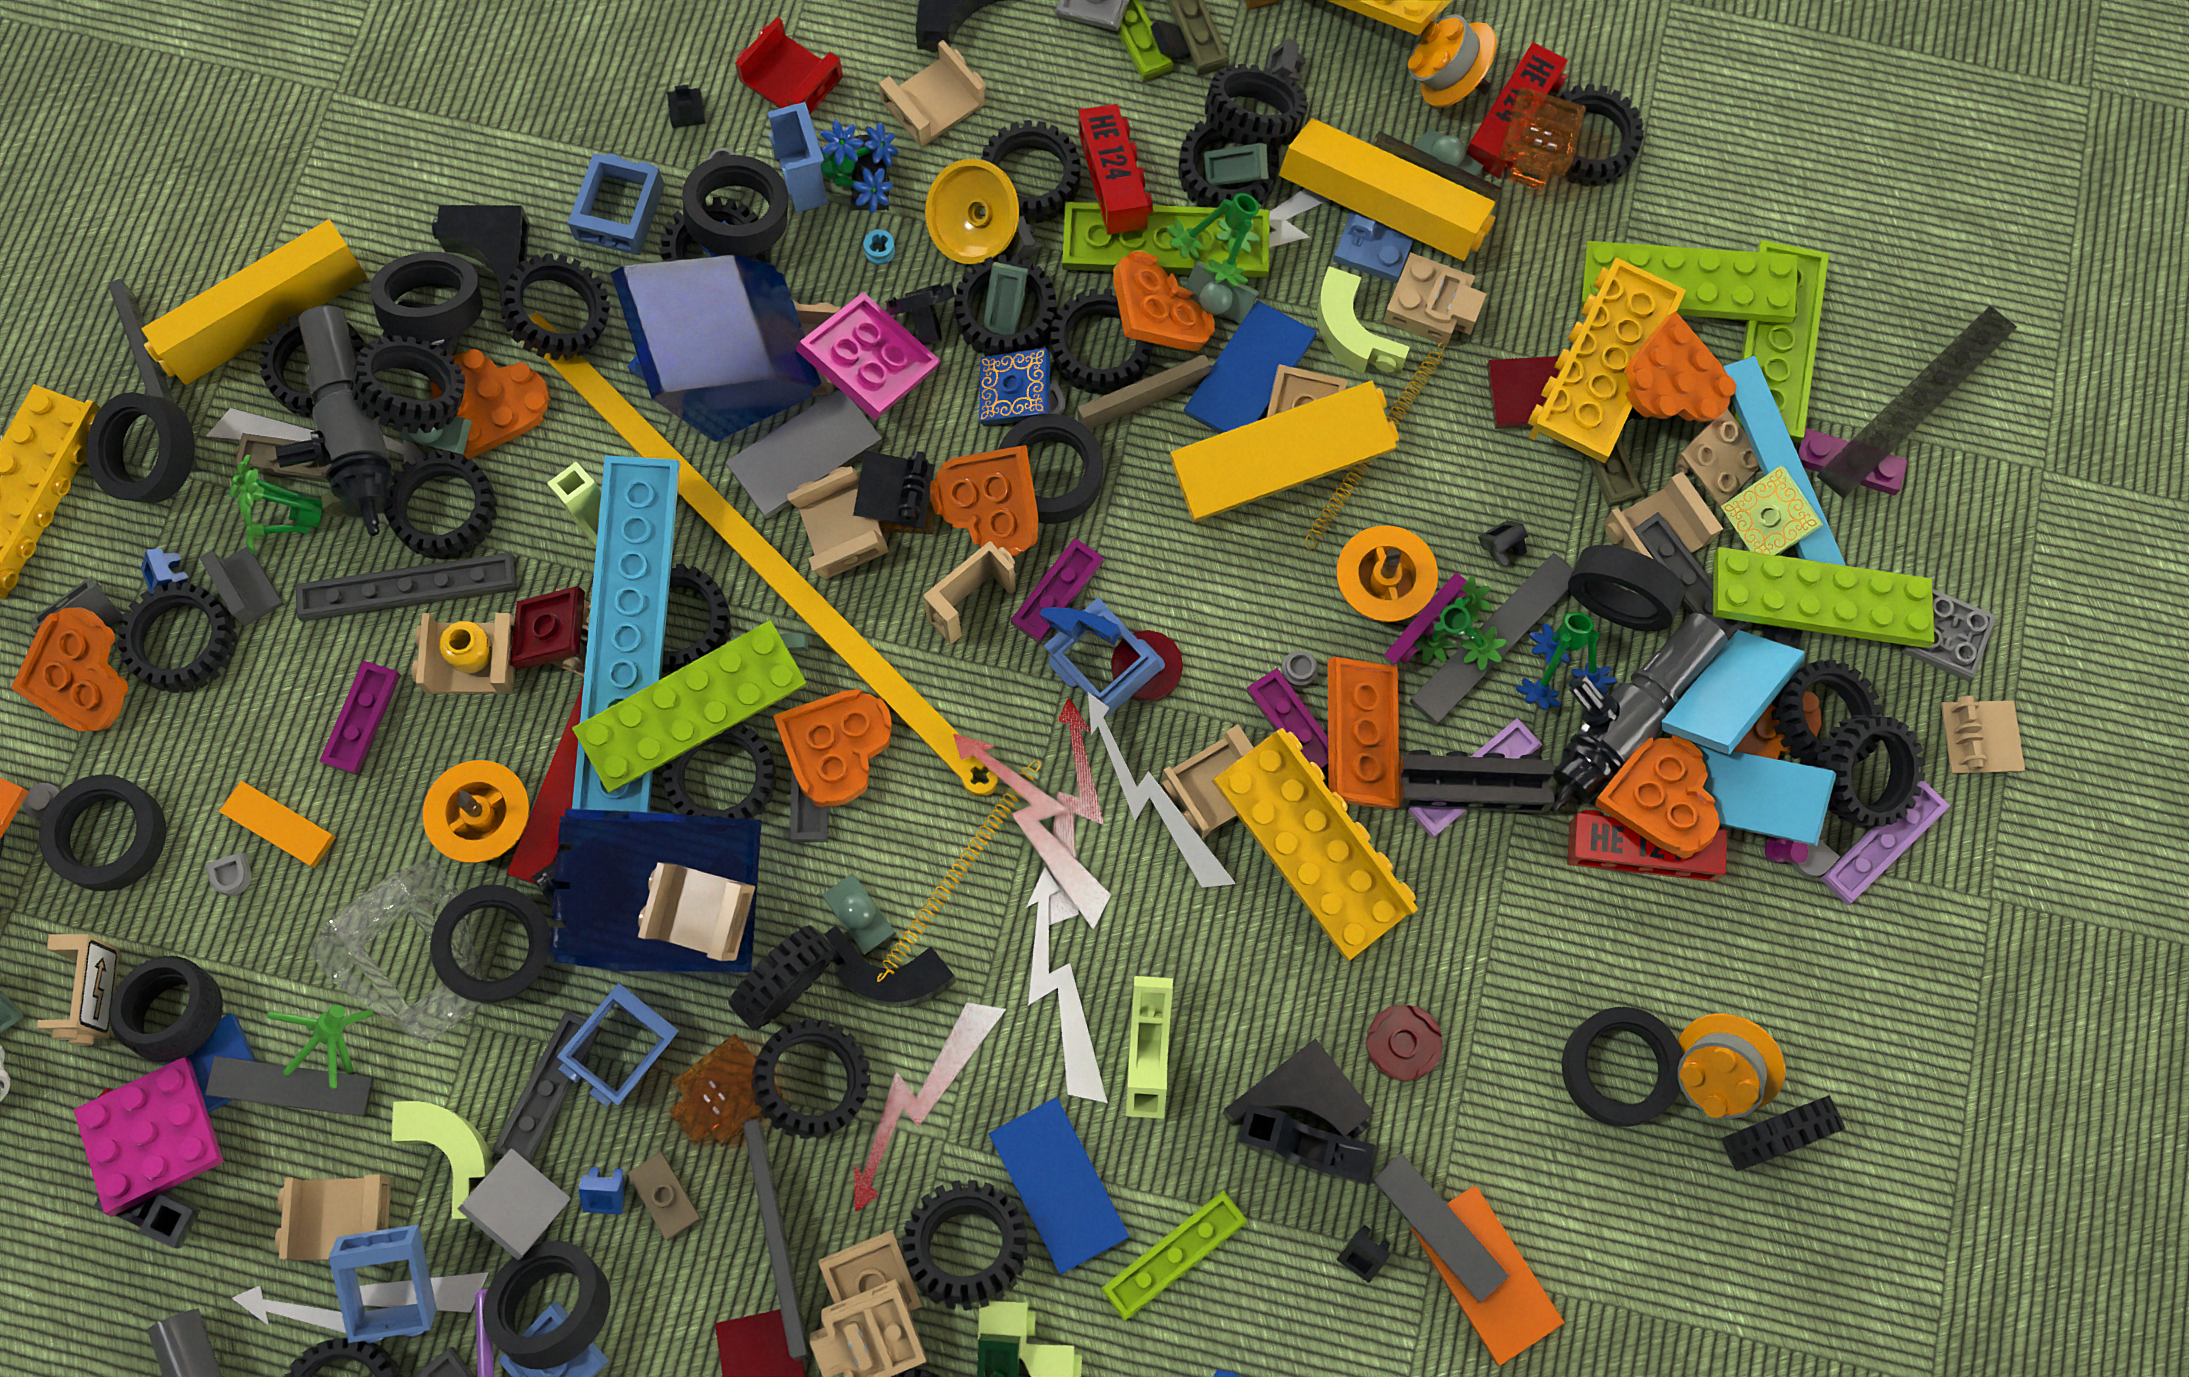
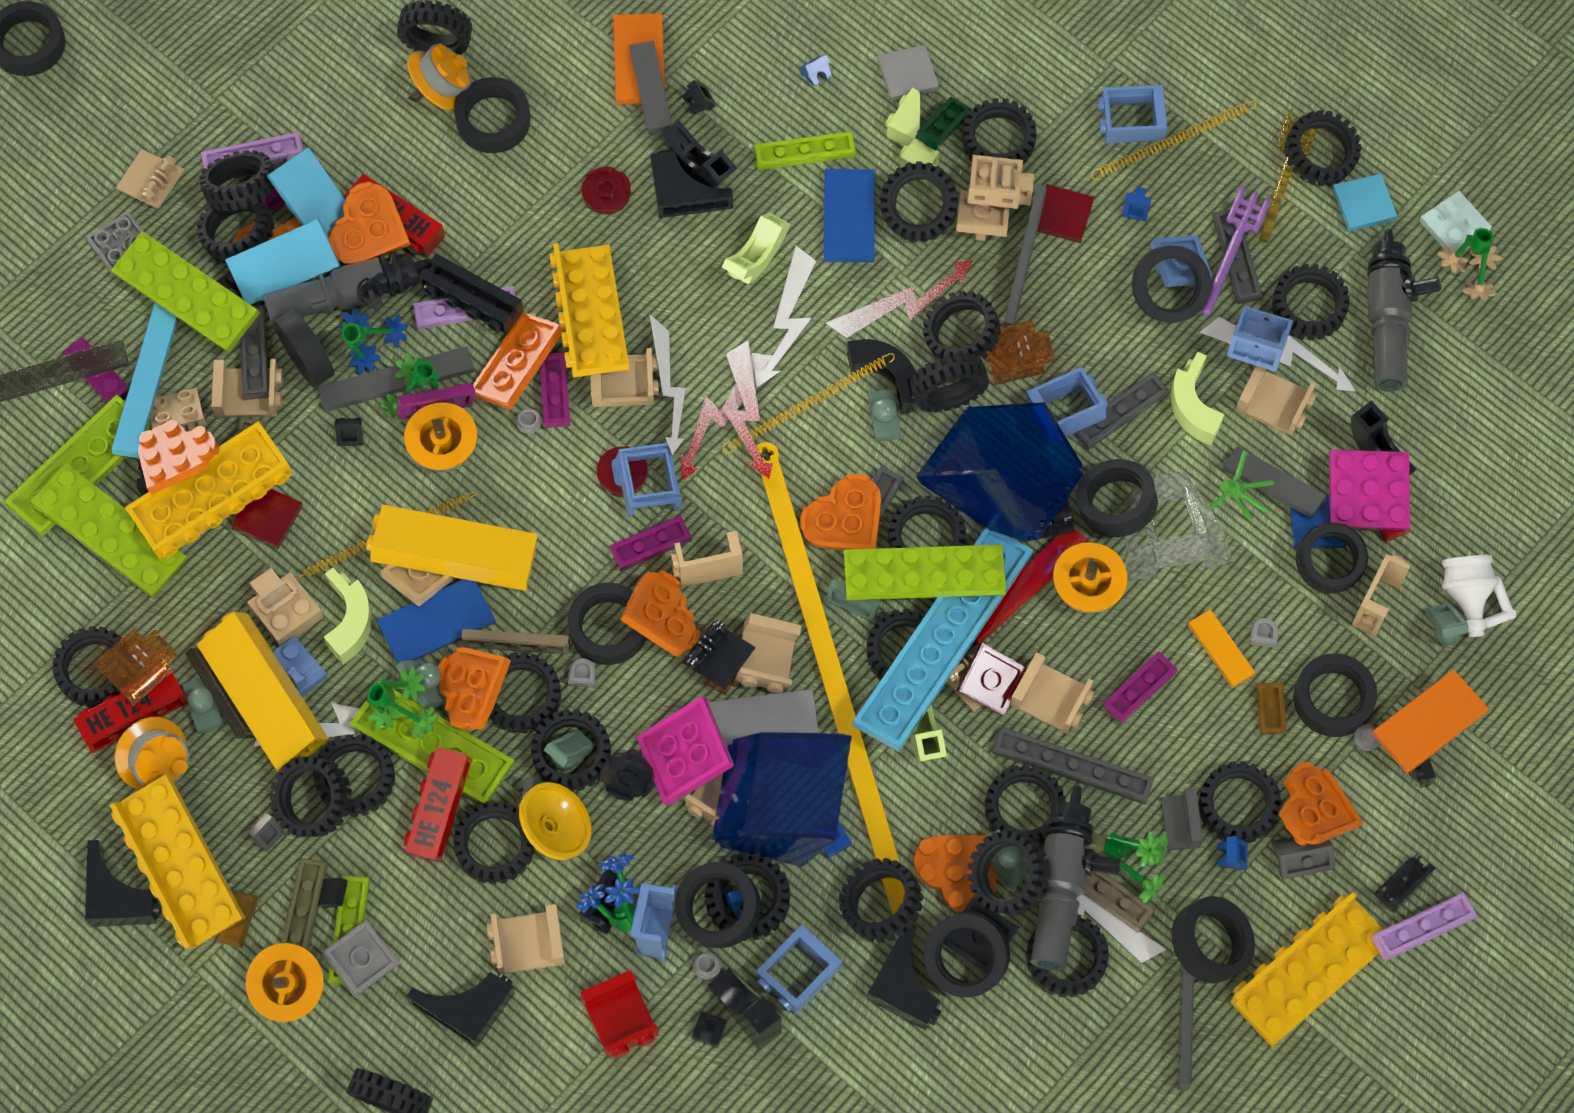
camera: 150 degrees left, 5 degrees down
(182, 778) = (1271, 708): none -> pearl gold tile
(253, 303) = (1090, 1012): yellow brick -> none
(466, 647) = (1050, 689): yellow head -> none
(514, 1204) = (1166, 347): light grey tile -> none
(602, 1193) = (1114, 334): blue tile -> none
(640, 130) = (750, 1012): none -> black arch
(664, 1196) = (1078, 319): dark tan plate -> none
(696, 910) = (978, 447): tan panel -> none
(881, 237) = (638, 848): medium azure bush -> none
(1014, 386) = (598, 689): blue plate -> none
(1071, 622) = (657, 493): blue slope -> none
(1236, 165) = (353, 762): sand green tile -> none
(1772, 514) = (175, 356): yellowish green plate -> none

